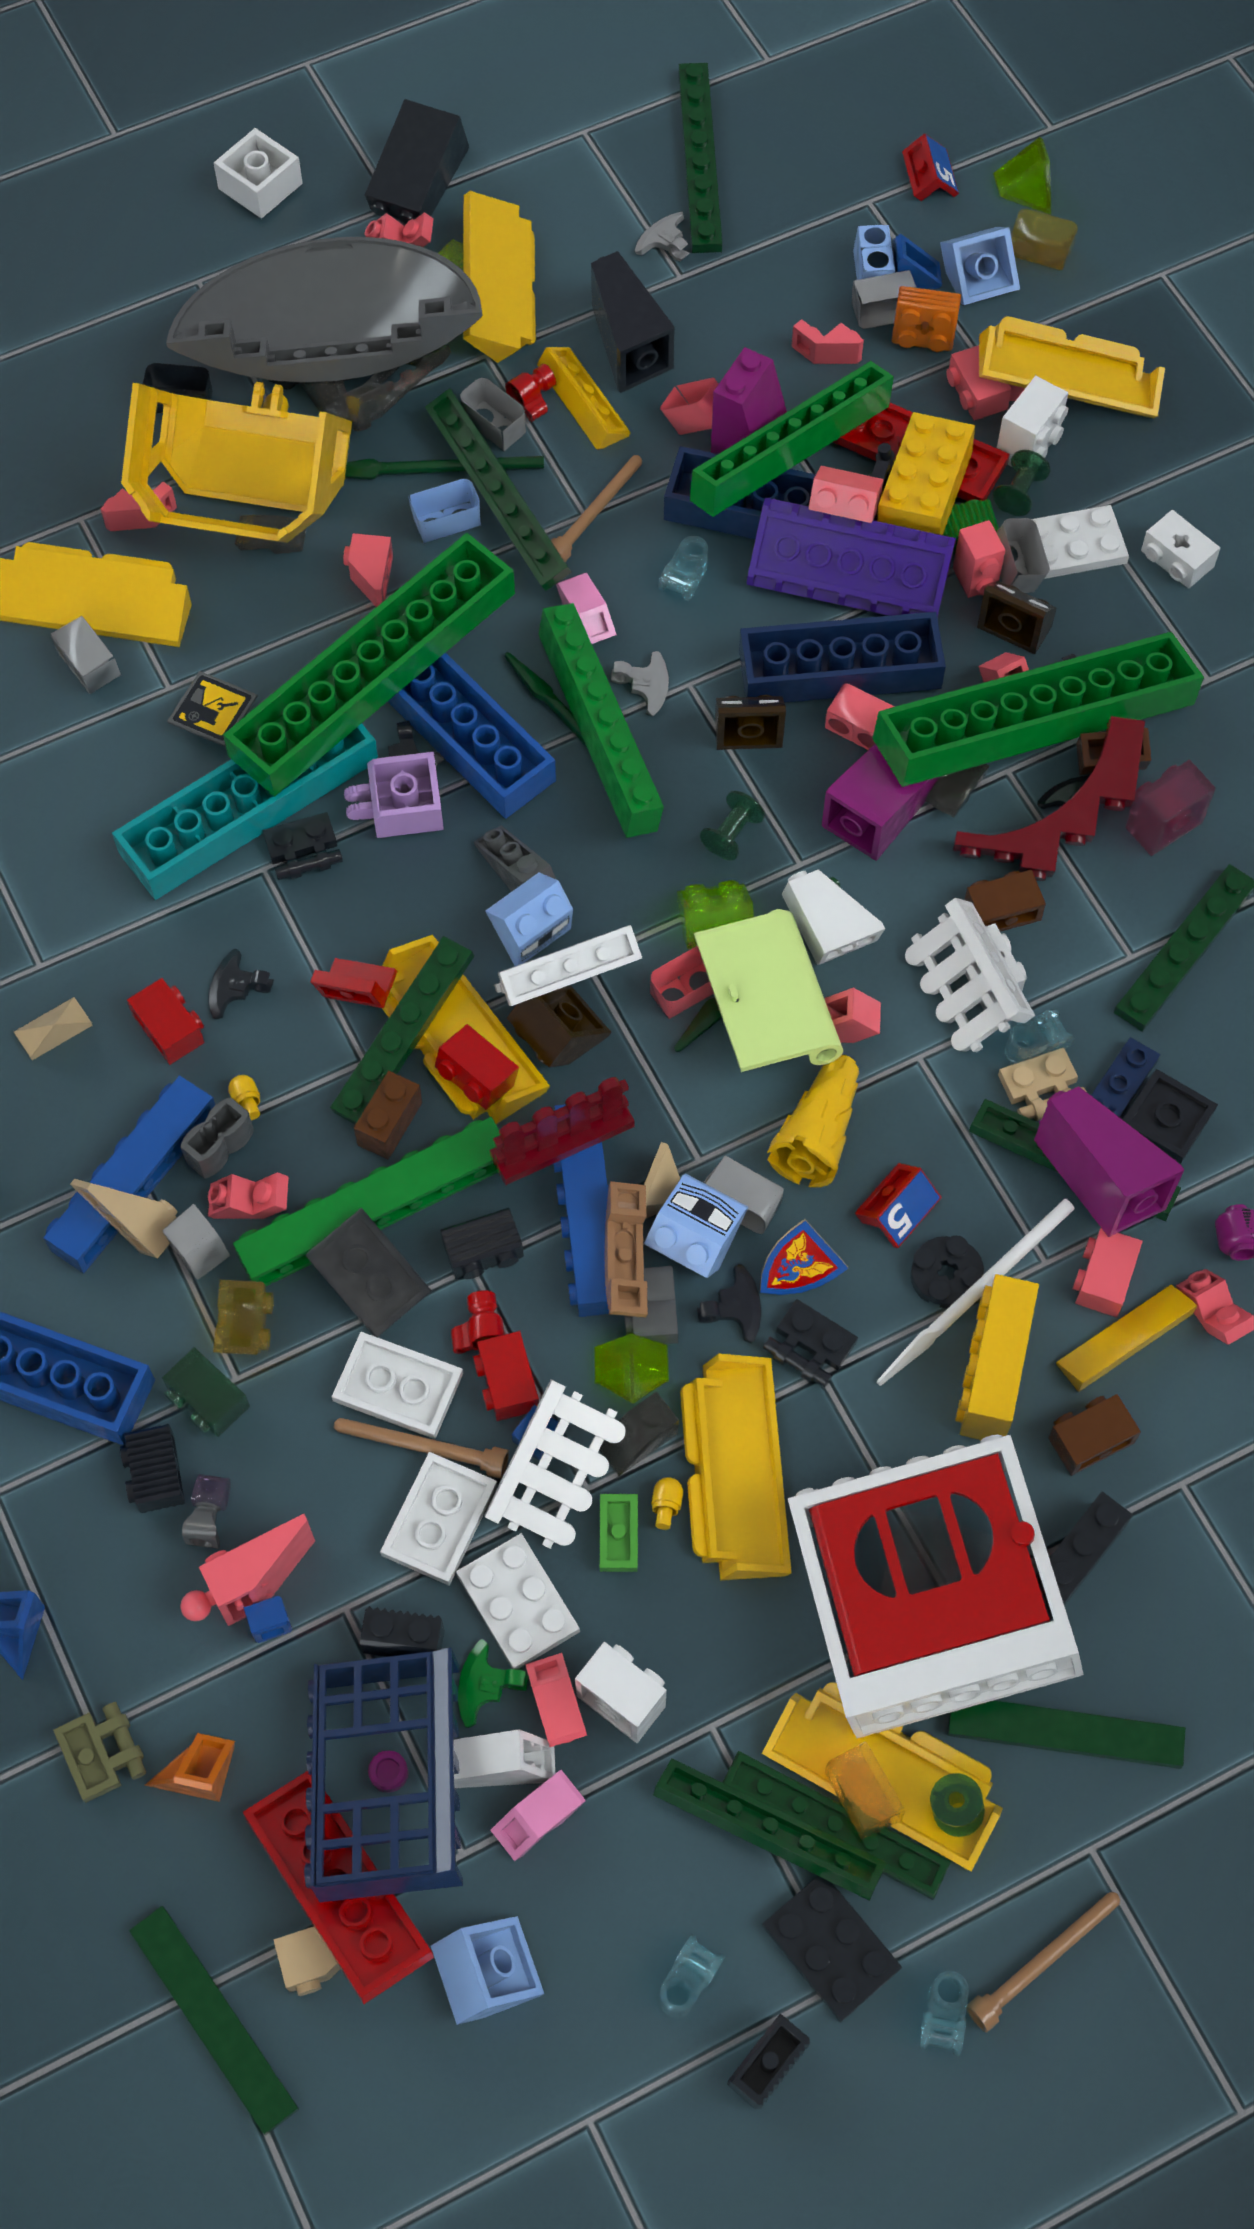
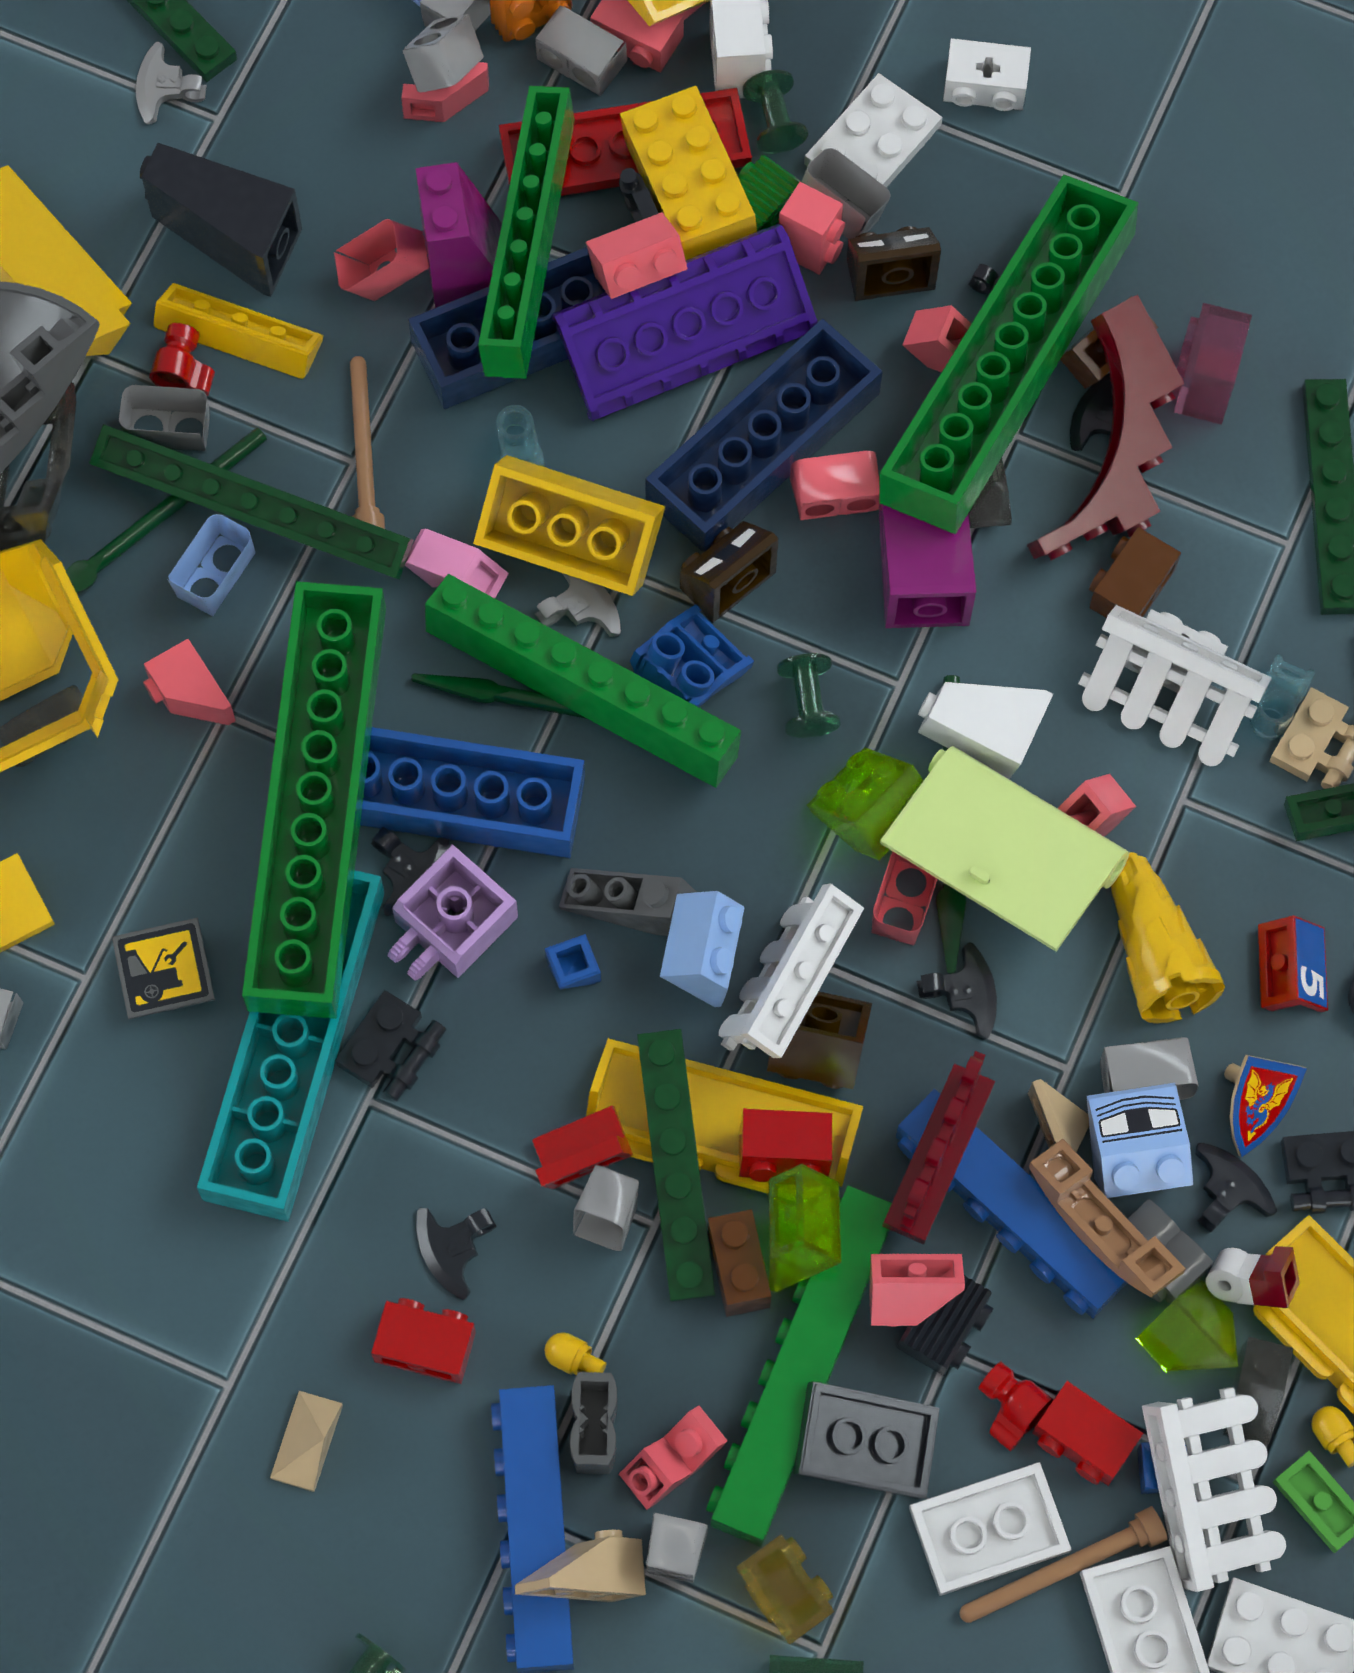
camera: 40 degrees left, 5 degrees up
(341, 1020) = (608, 1207): none -> light grey piece
(437, 1113) = (802, 1226): none -> clear neon green slope
(450, 876) = (573, 963): none -> blue slope
(470, 1198) = (912, 1286): none -> coral slope
(672, 626) = (569, 525): none -> yellow brick
(677, 1068) = (966, 991): none -> black piece
(678, 755) = (690, 658): none -> blue slope
(696, 1363) = (1255, 1277): none -> leg
(838, 313) = (443, 59): none -> light grey piece
(930, 372) = (580, 50): none -> light grey piece

